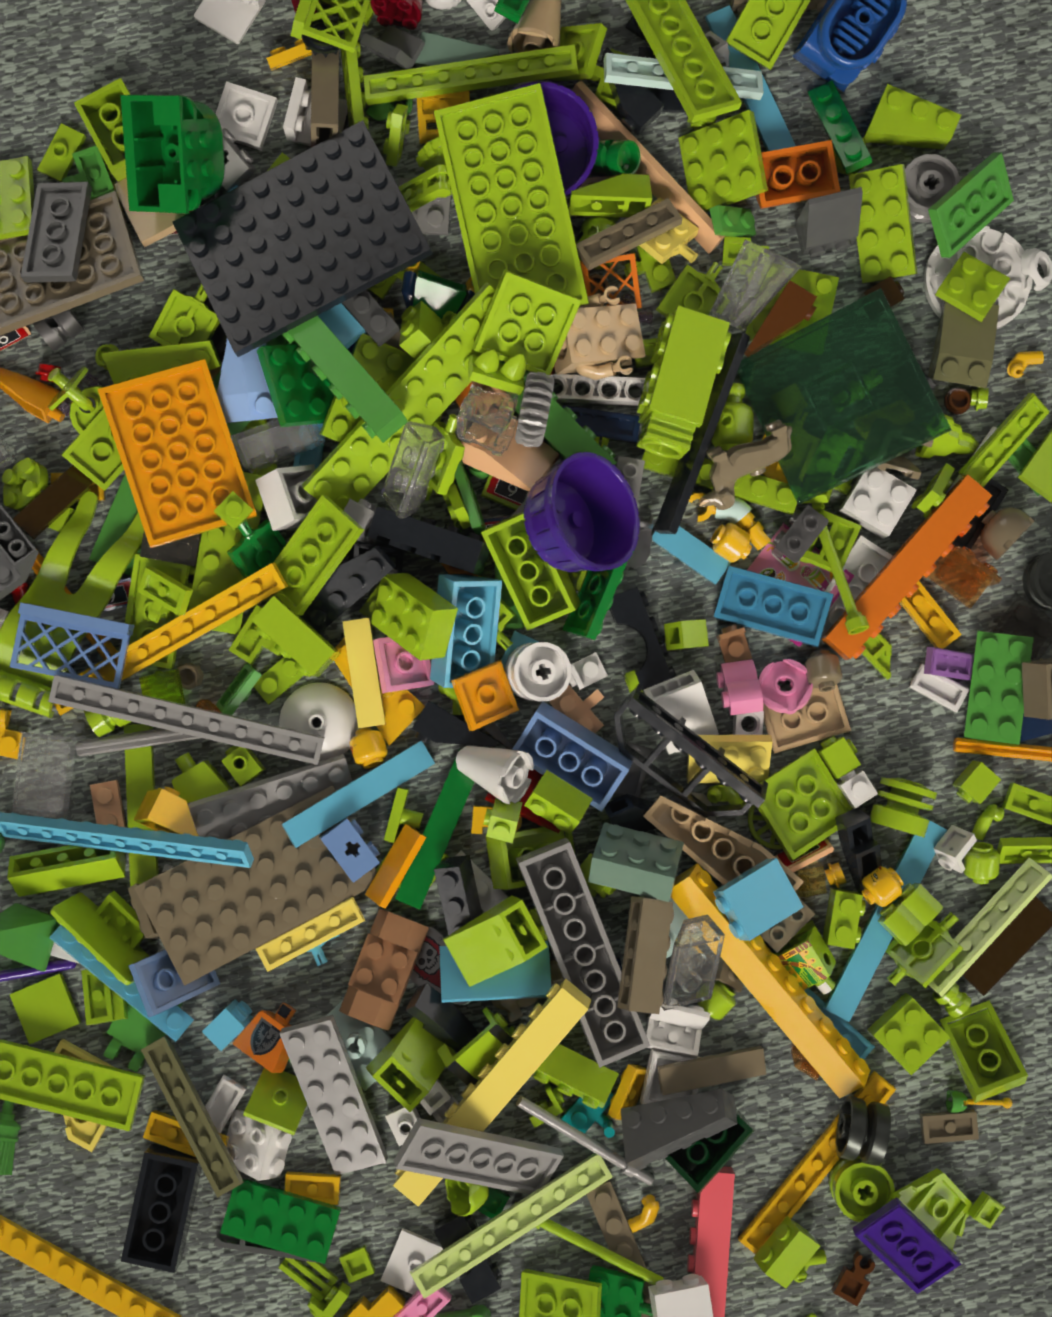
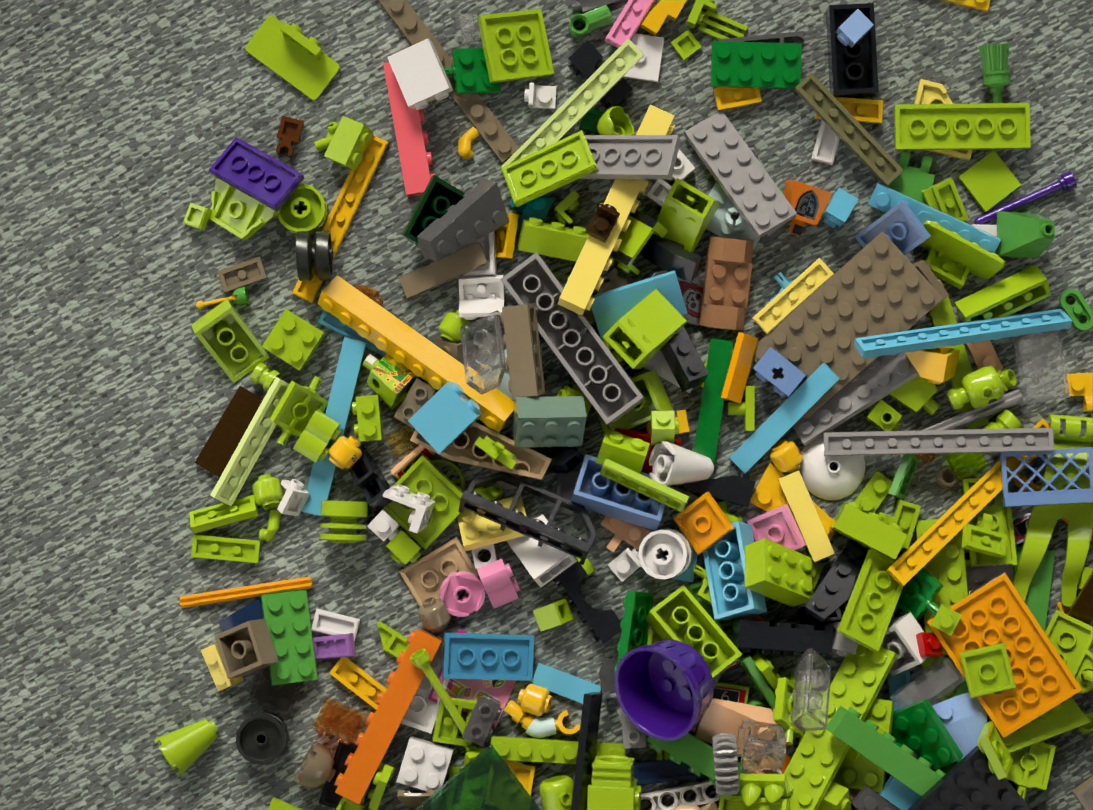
camera: 165 degrees right, 0 degrees up
(89, 771) = (1008, 378): none -> lime plate
(124, 768) = (978, 389): none -> lime piece
(151, 1238) = (854, 28): none -> light blue brick
(201, 440) = (987, 670): none -> lime tile
(217, 347) = (993, 746): none -> lime plate
(257, 1147) = (789, 118): white bracket -> none
(261, 487) = (928, 644): none -> red plate
(277, 1101) = (783, 157): lime plate -> none
(512, 1085) = (603, 222): none -> dark brown bracket
(544, 758) = (644, 485): none -> lime tile
(544, 1247) = (540, 96): none -> white bracket
(557, 1162) = (549, 168): none -> lime tile
(584, 1140) = (552, 196): light grey bar -> none
(600, 1251) = (498, 106): lime bar -> none
(710, 843) = (495, 450): none -> lime plate
(734, 644) = (511, 617): medium nougat bracket -> none
(743, 460) = (545, 768): dark tan animal -> none
(810, 803) = (420, 501): none -> white bracket
(835, 874) = (383, 451): yellow plate -> none
(976, 782) = (288, 555): lime brick -> none

